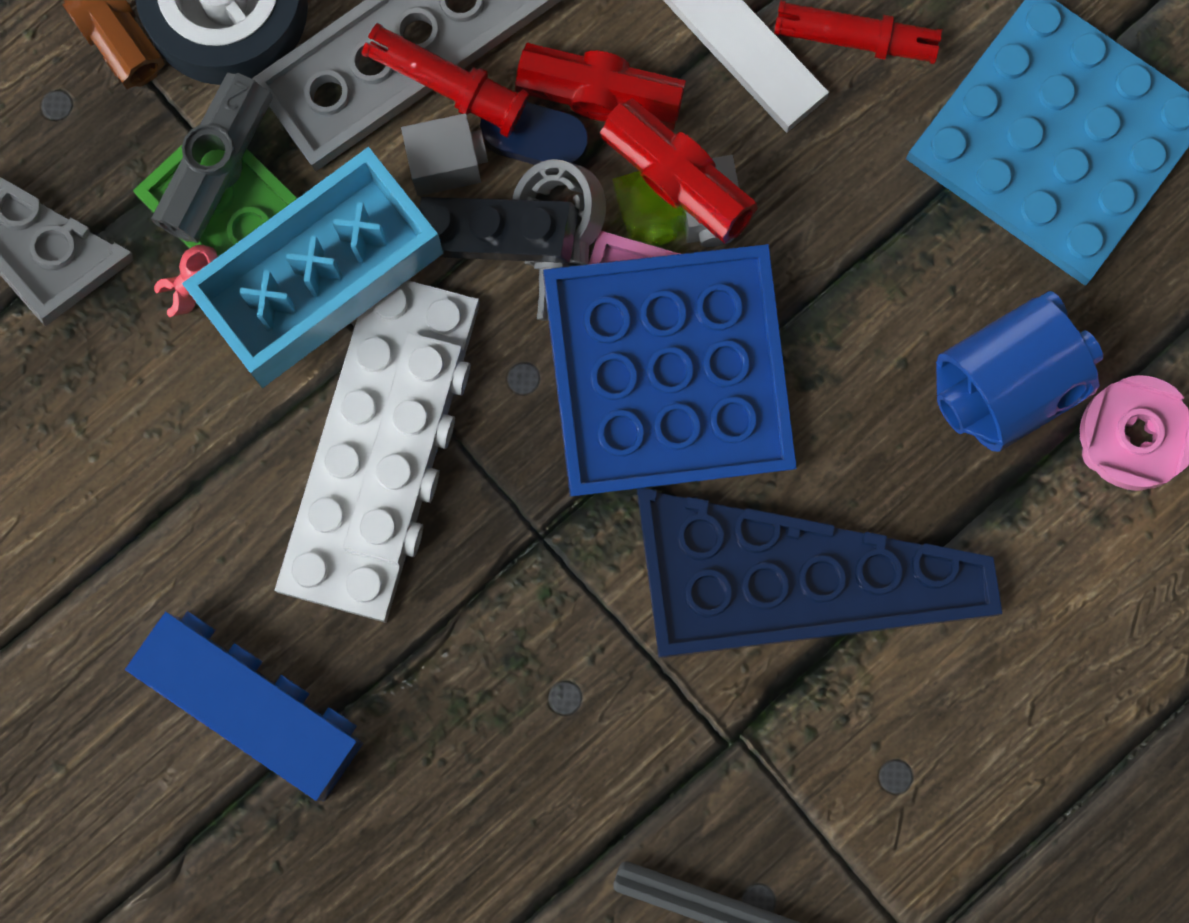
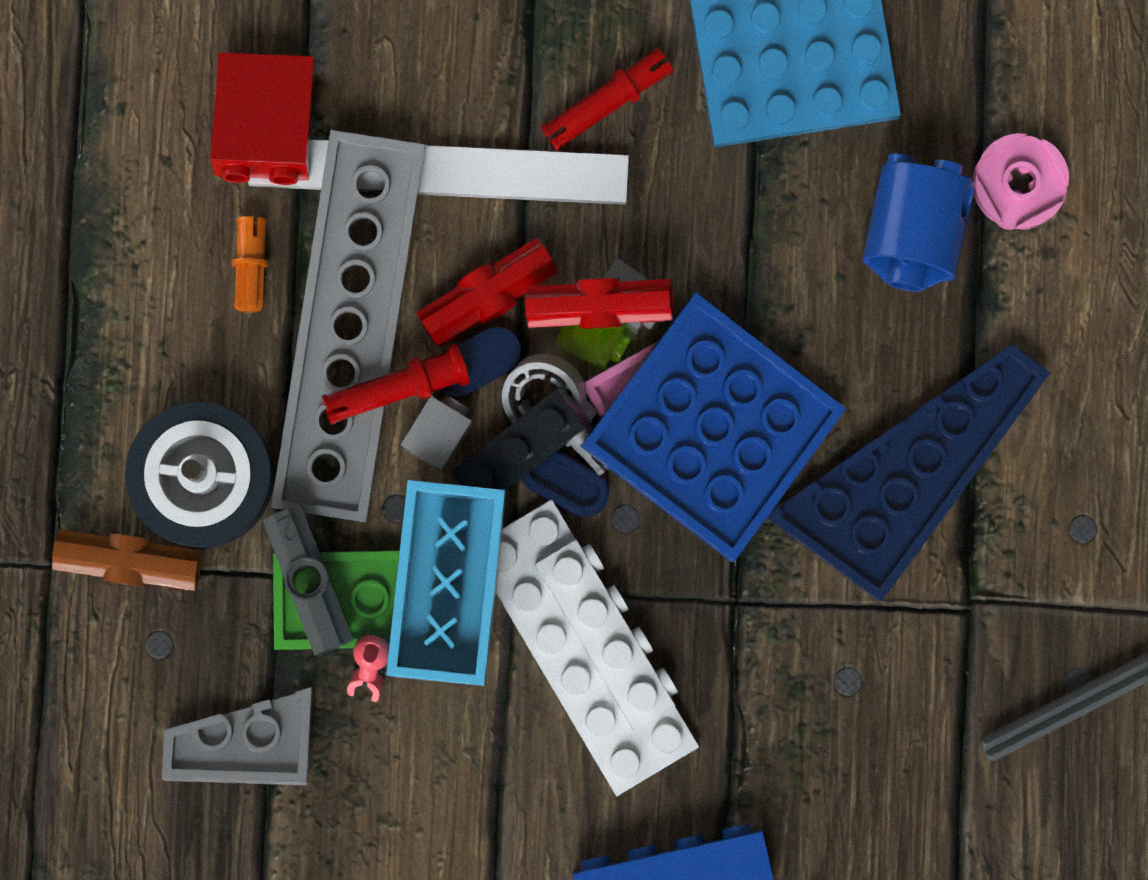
camera: 50 degrees left, 5 degrees up
(505, 303) = (569, 485): none -> dark blue tile

